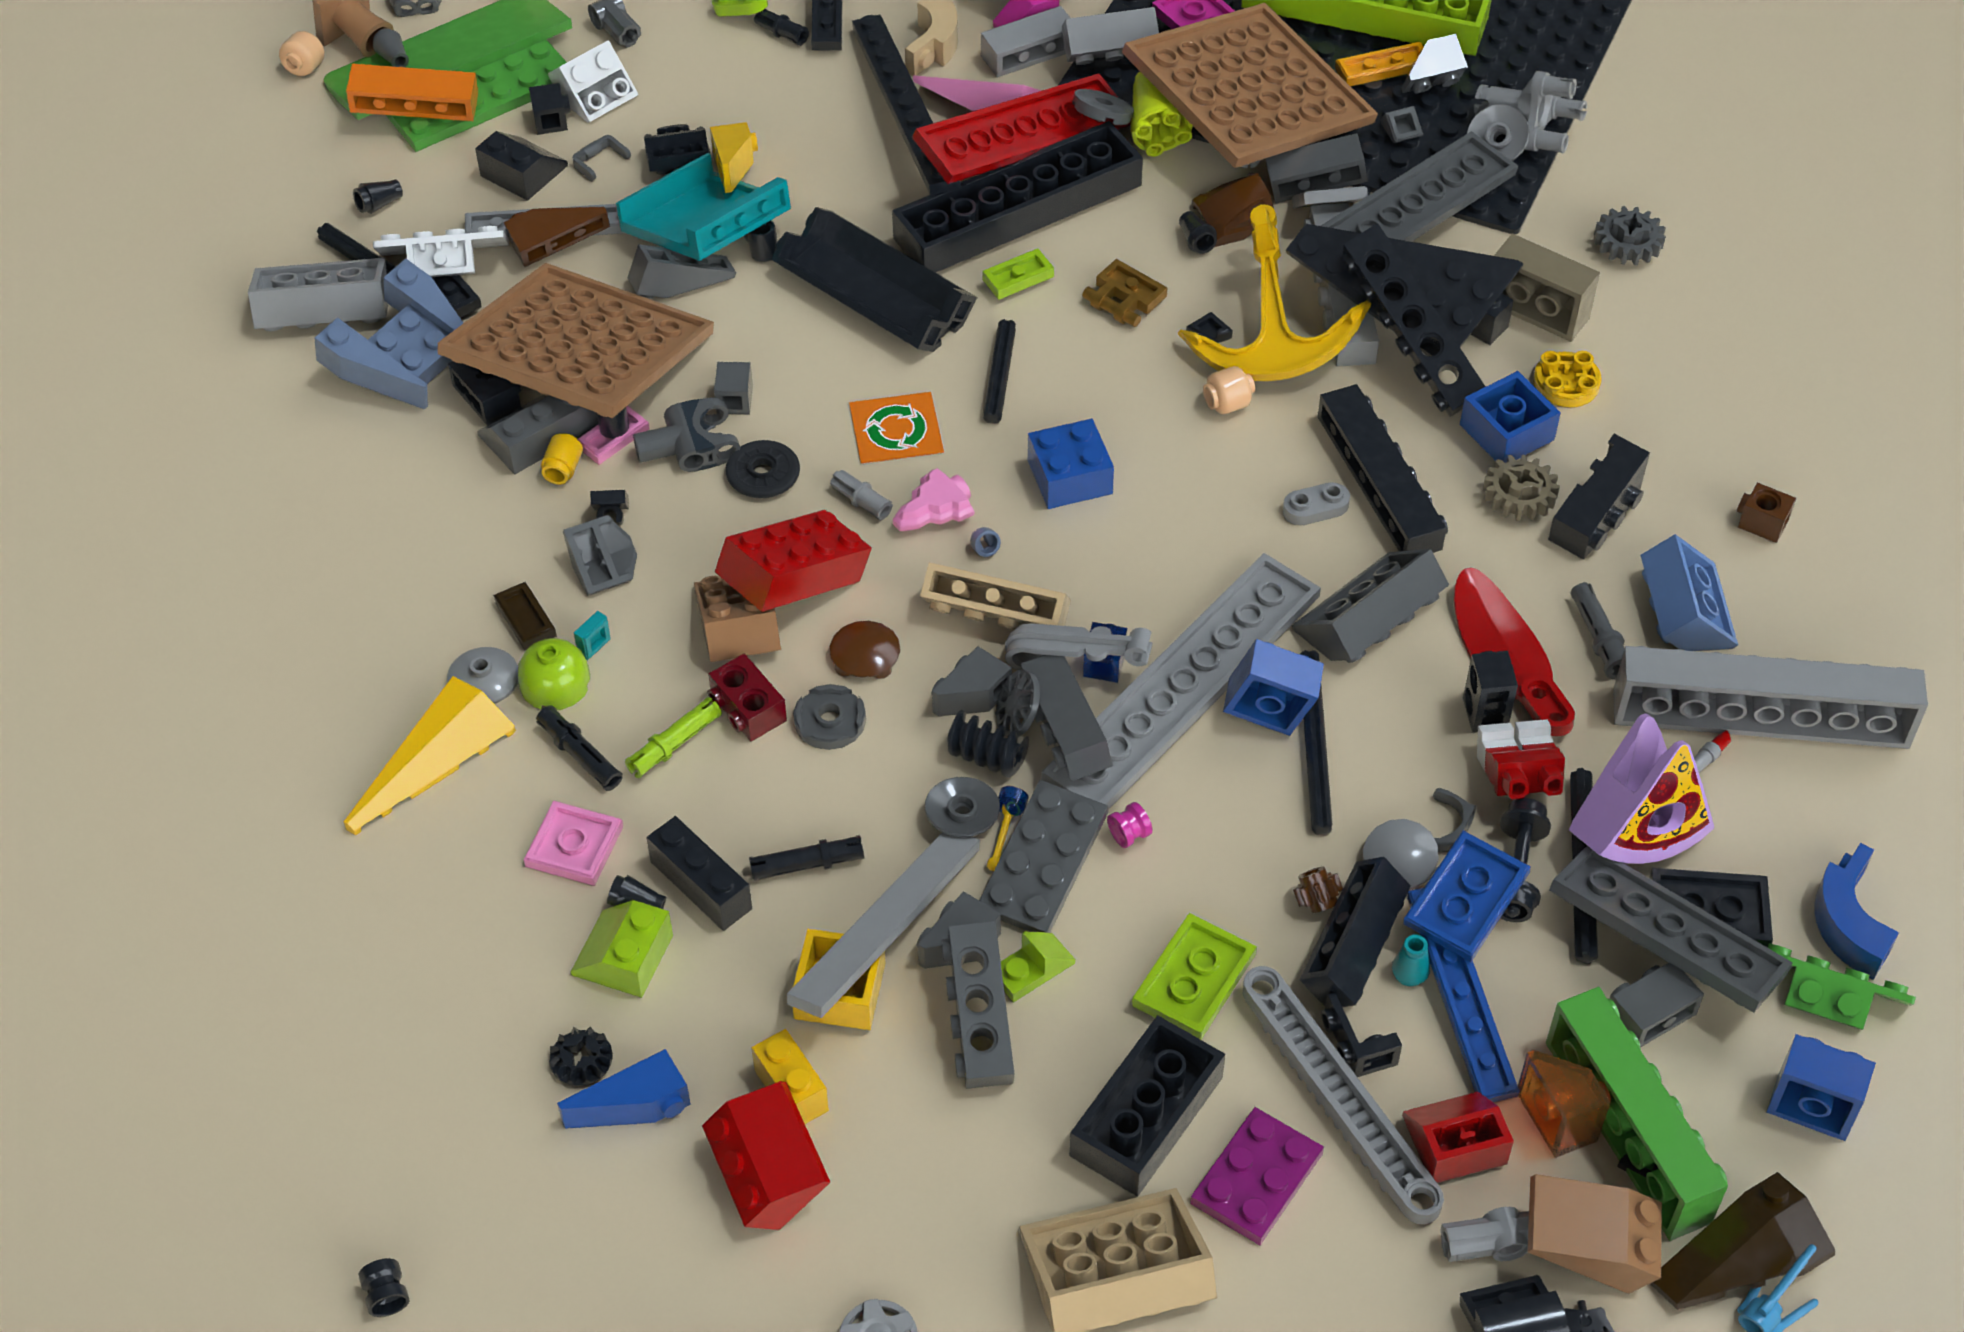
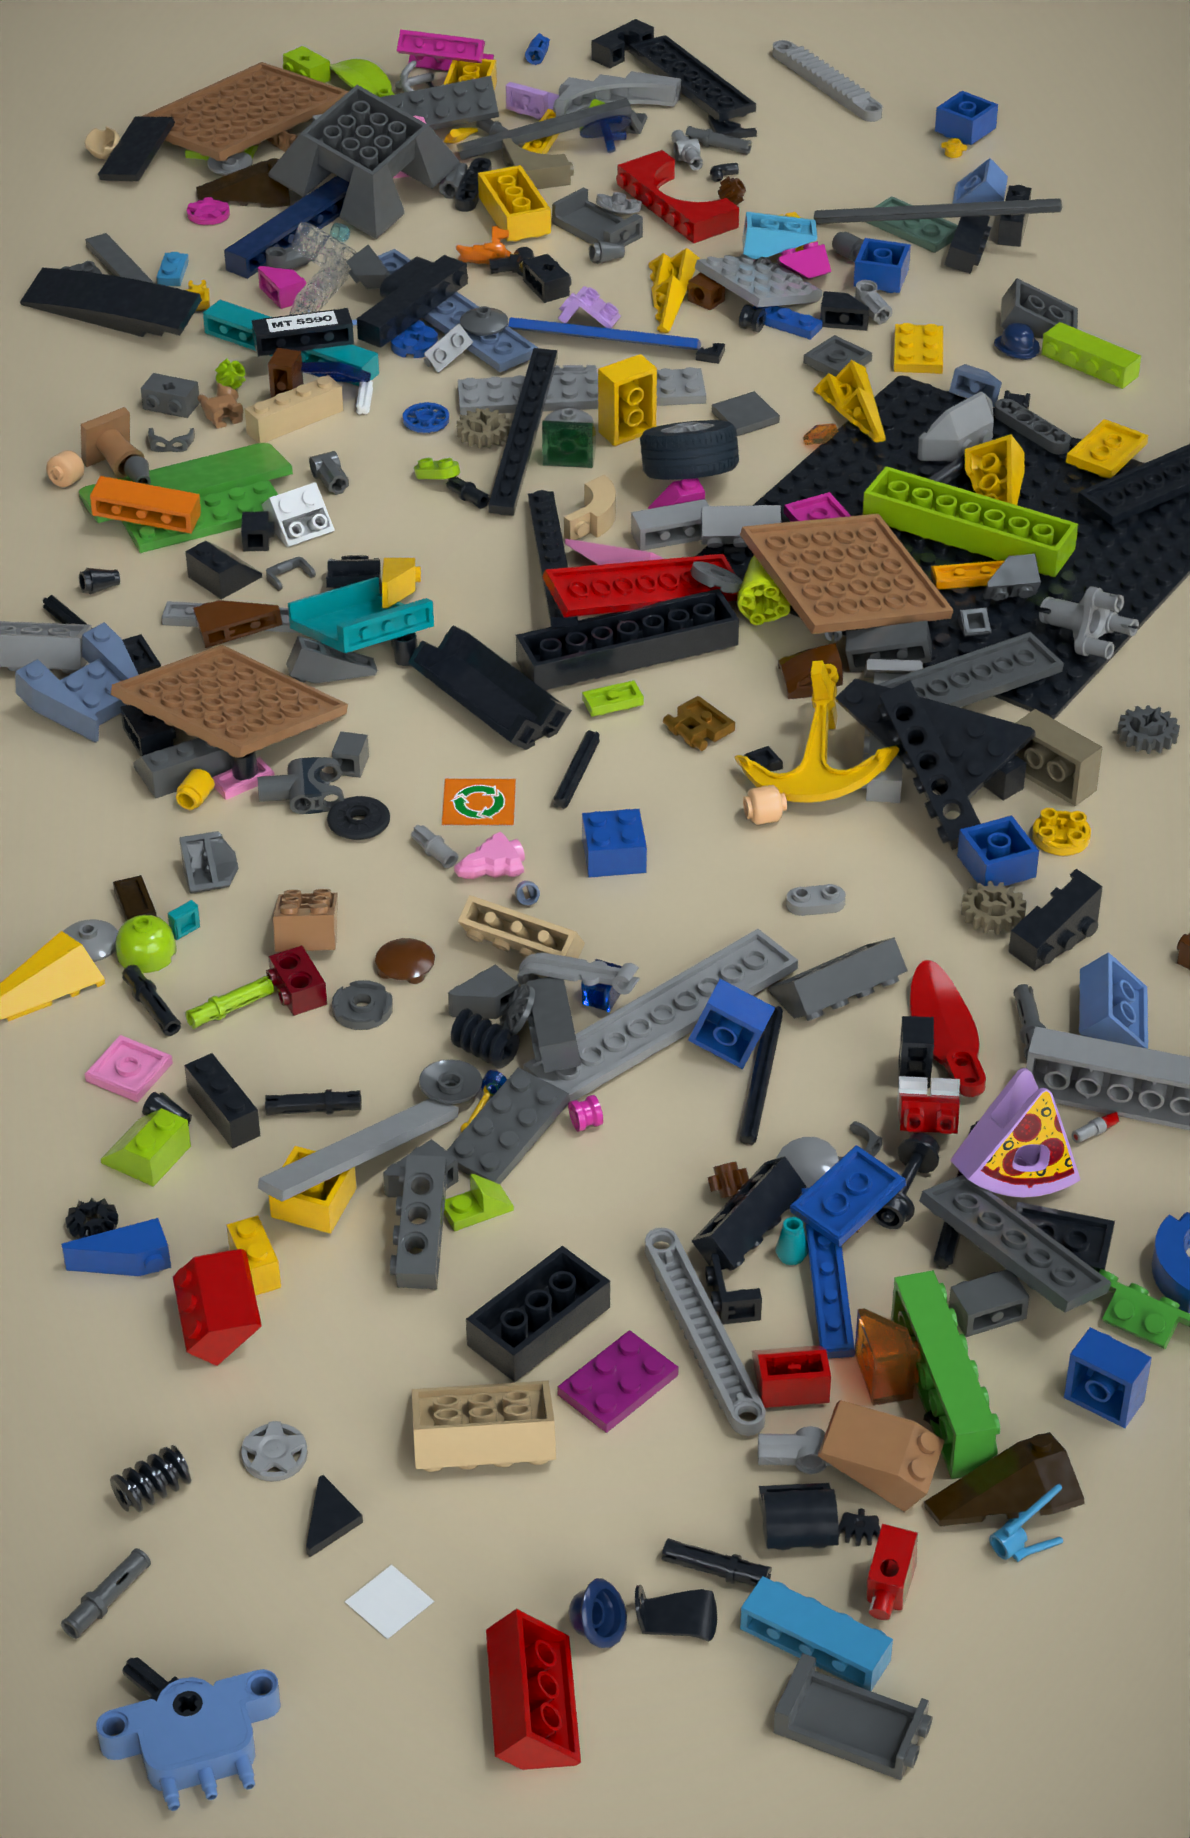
camera: 10 degrees right, 10 degrees down
(442, 254) = (140, 626): white bracket -> none
(608, 501) = (226, 824): black tile -> none
(792, 560) = (359, 880): red brick -> none
(1194, 975) = (608, 1228): lime plate -> none
(1199, 234) = (774, 685): black cone -> none
(1381, 470) = (877, 879): black brick -> none
(1502, 120) = (1054, 627): light grey dish -> none

